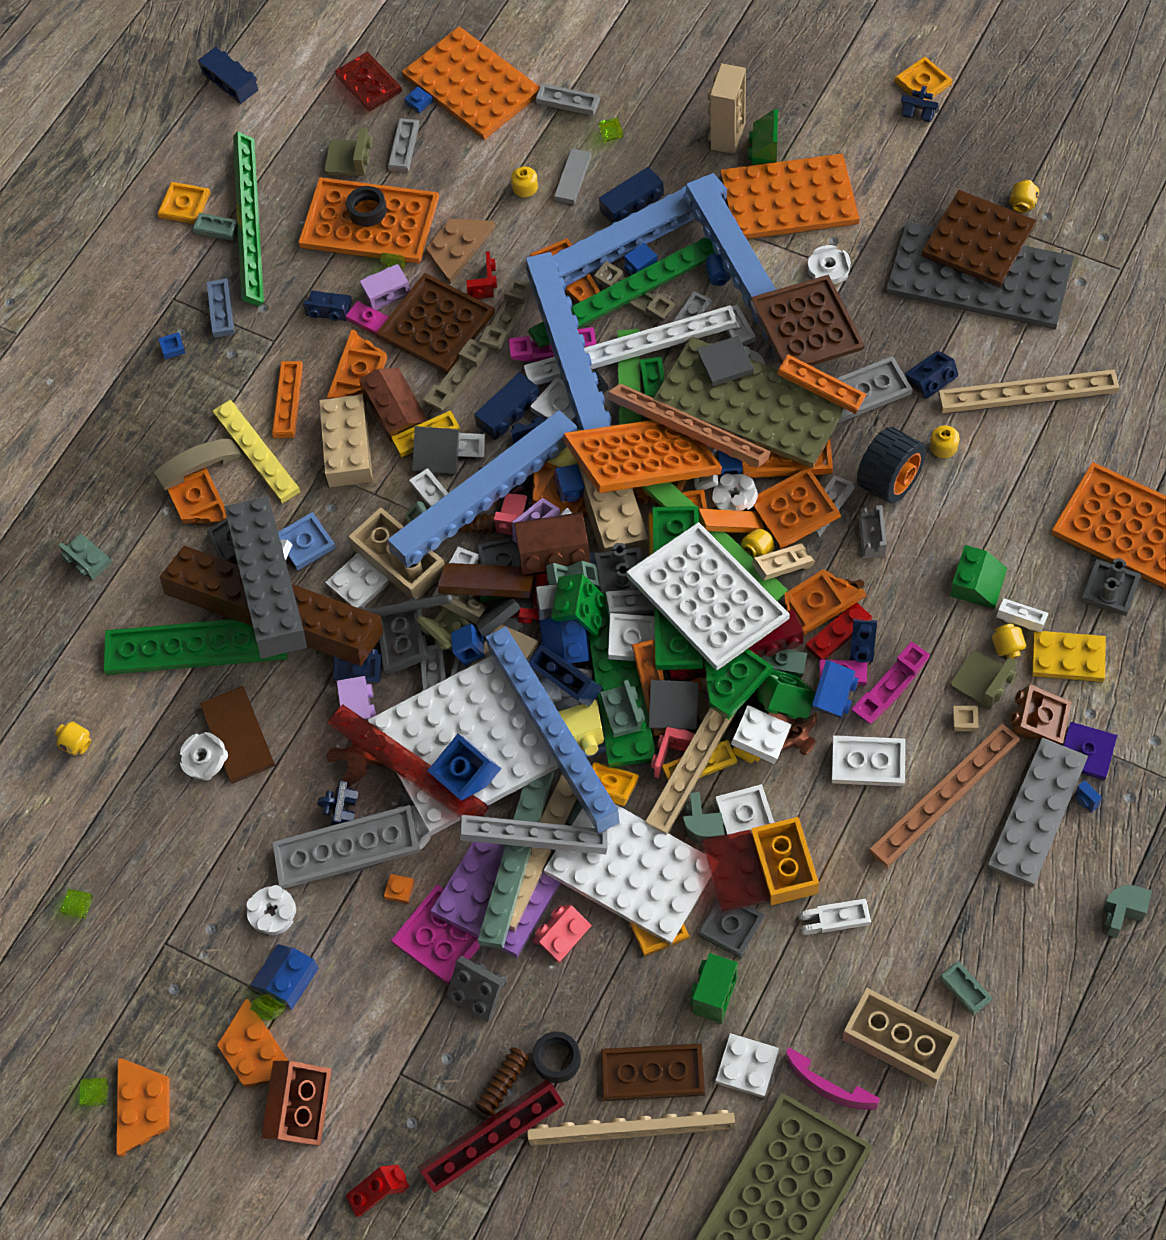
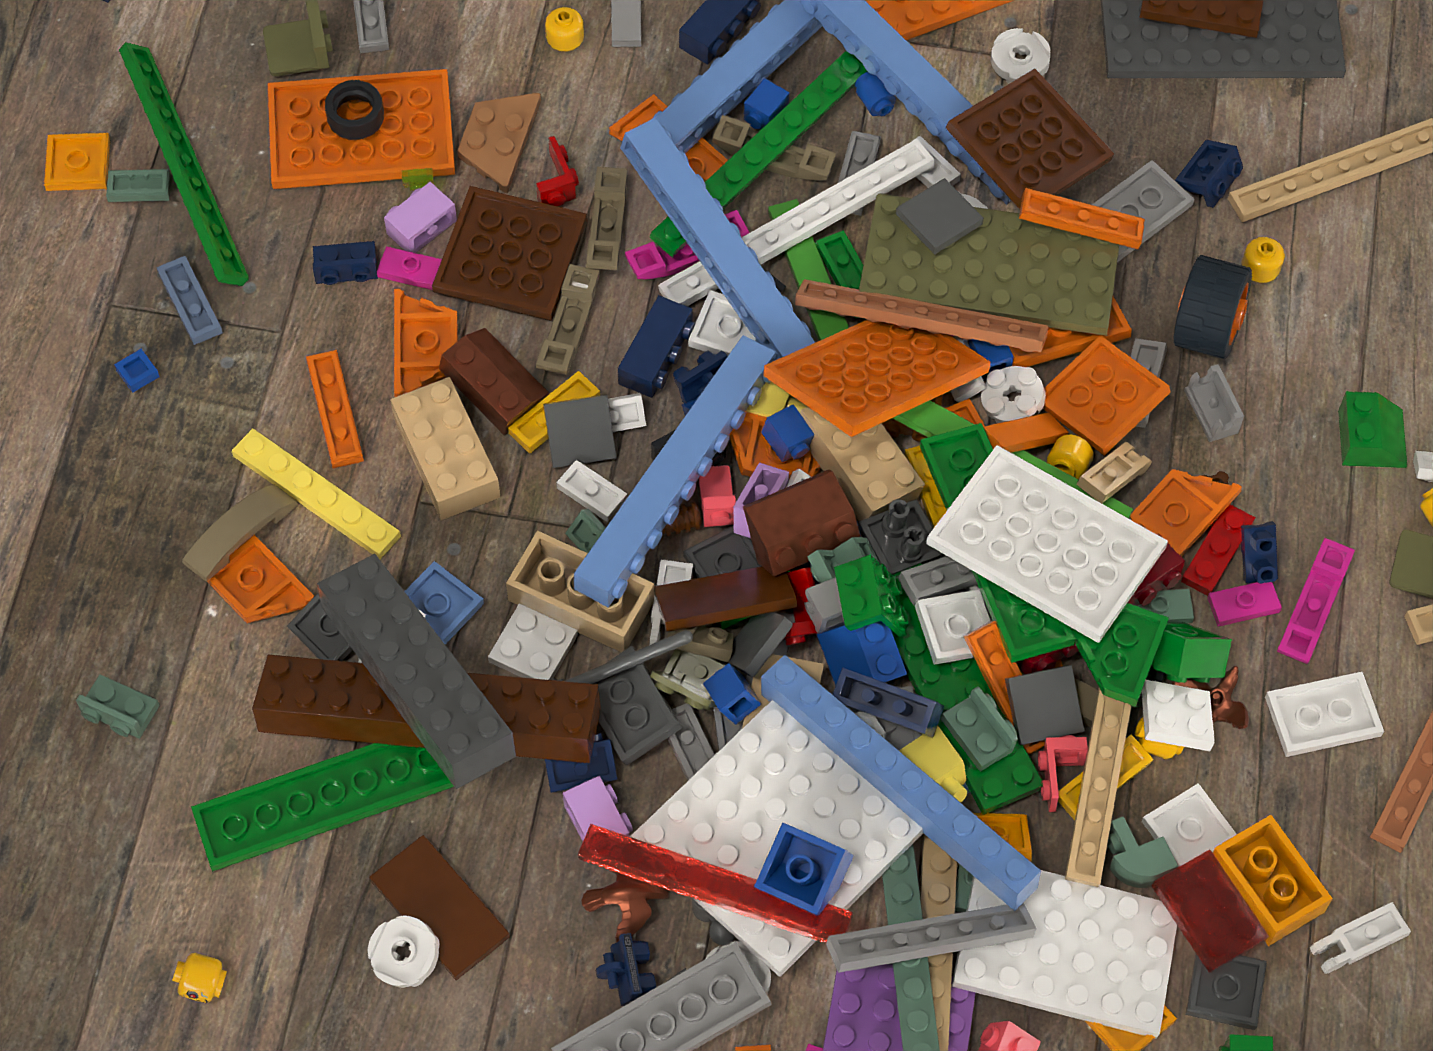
camera: 25 degrees left, 0 degrees up
(835, 690) = (1250, 628): blue slope -> none

